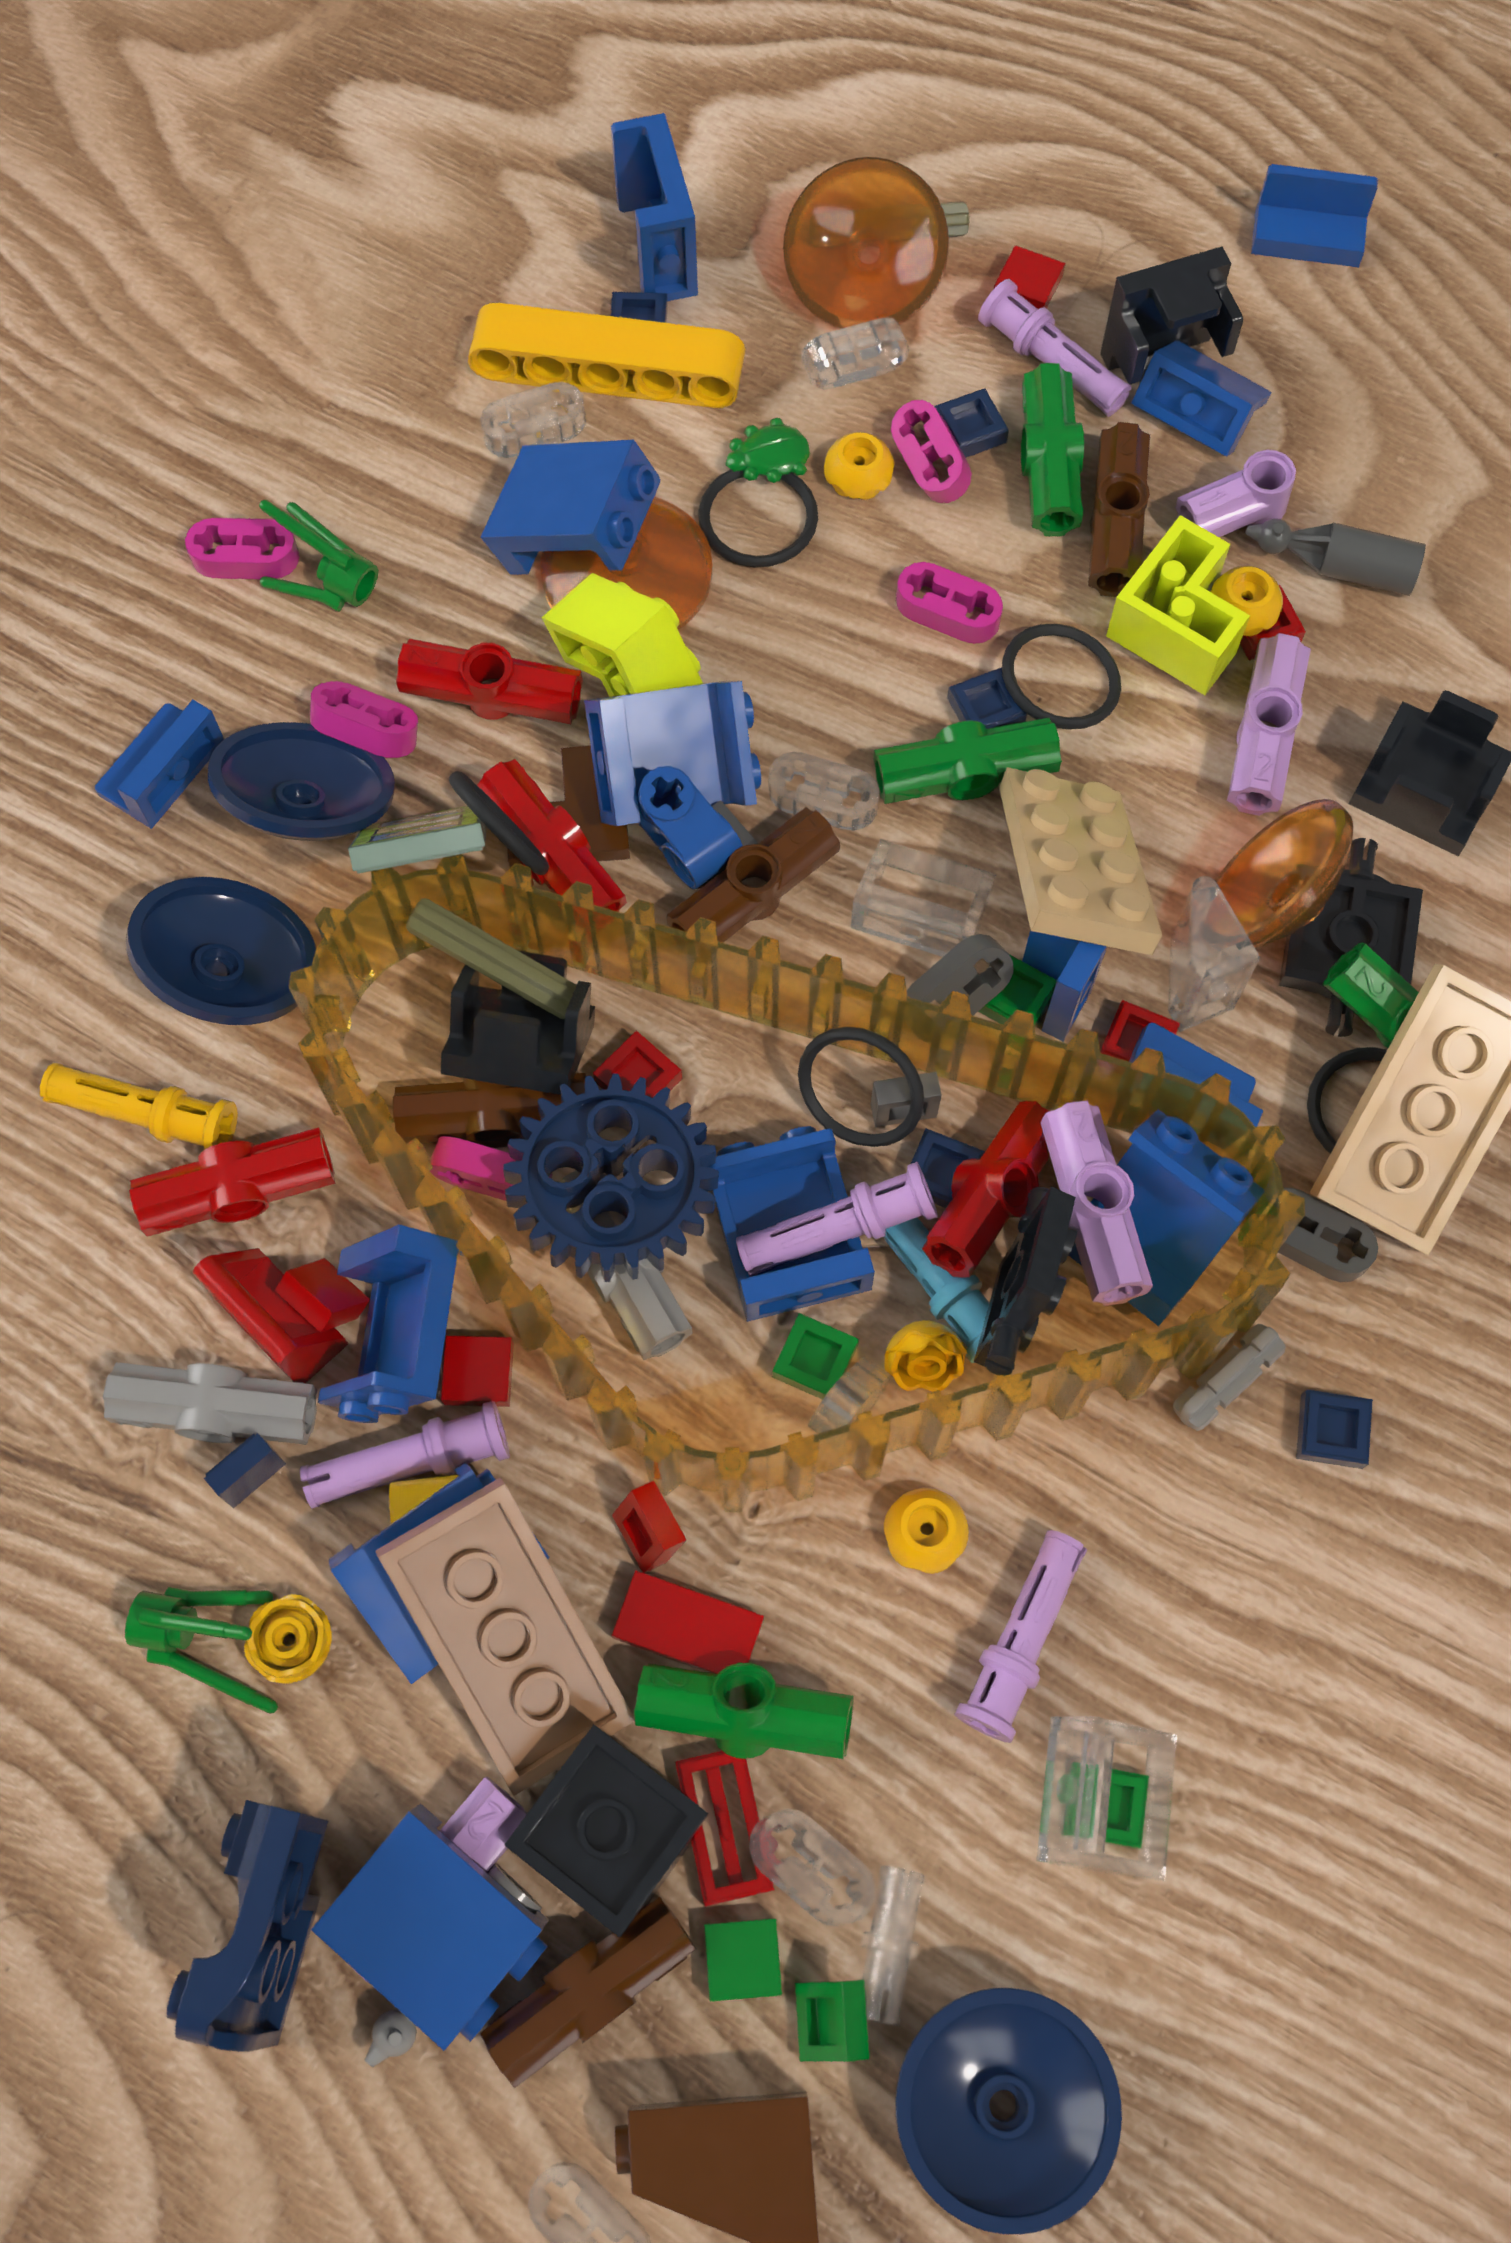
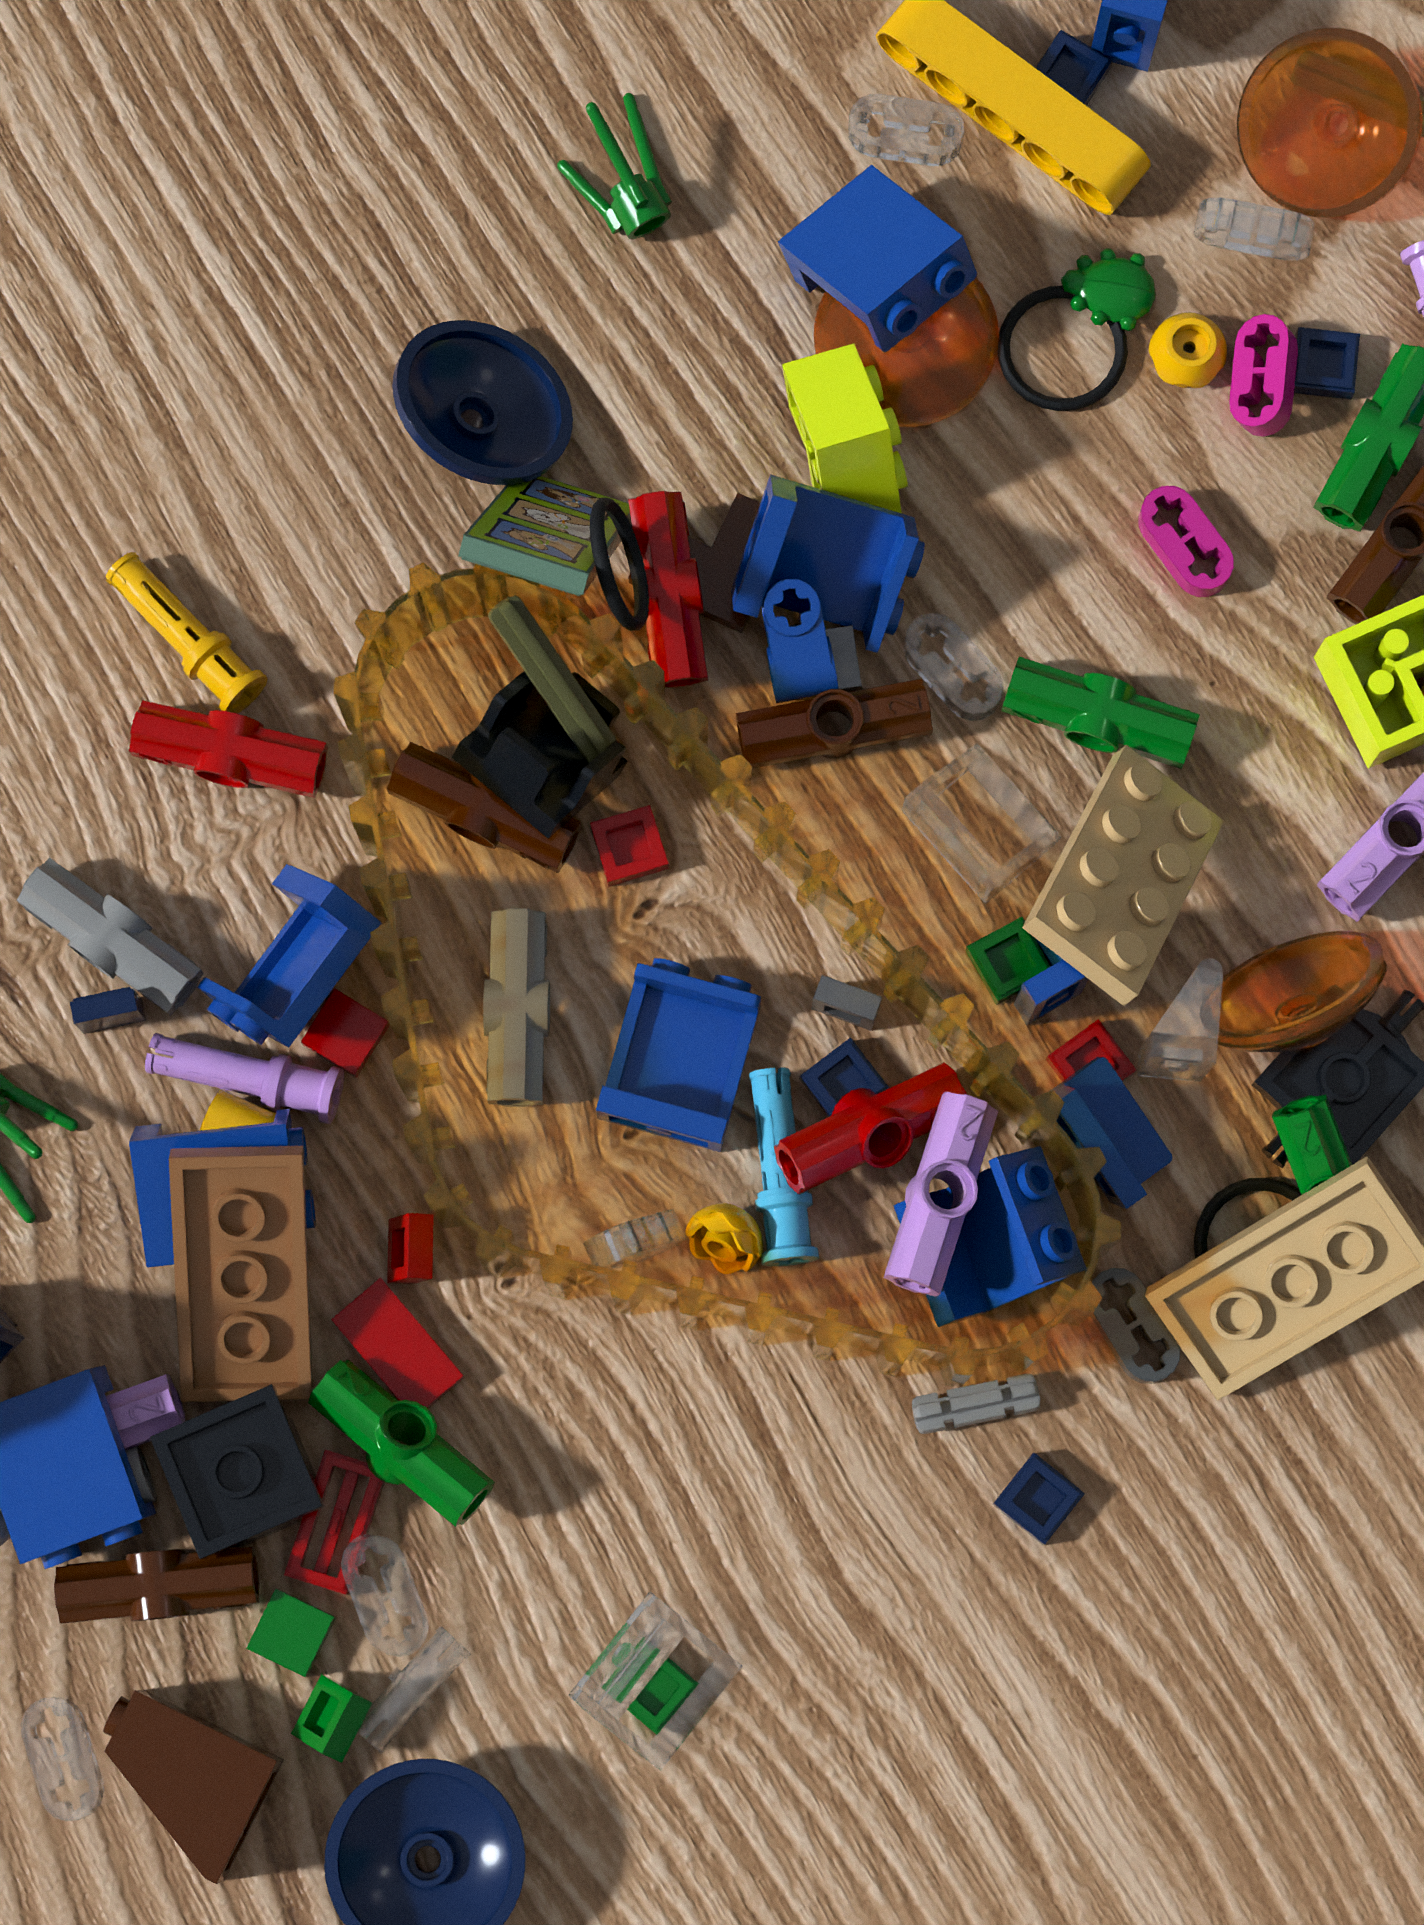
camera: 30 degrees right, 10 degrees up
(161, 762) = (371, 303): blue panel -> none
(218, 950) = (346, 512): dark blue dish -> none
(242, 548) = (551, 132): dark pink beam -> none
(245, 1288) = (200, 886): red tile -> none
(270, 1626) = (60, 1153): yellow plate -> none
(322, 1295) = (249, 895): red tile -> none
(363, 719) = (573, 365): dark pink beam -> none
(457, 677) = (681, 364): red piece -> none
(471, 1166) = (451, 864): dark pink beam -> none
(653, 1213) = (559, 990): dark blue gear -> none
(814, 1356) = (635, 1183): green tile -> none
(865, 1212) = (744, 1087): lavender pin -> none
(884, 1045) = (843, 956): black tyre -> none
(926, 1552) = (643, 1404): yellow plate -> none
(957, 973) = (956, 925): dark grey beam -> none
(985, 701) = (1158, 664): dark blue tile -> none
(1011, 1663) = (642, 1530): lavender pin -> none
(1027, 1279) = (831, 1233): black plate -> none
(1081, 637) = (1284, 639): black tyre -> none

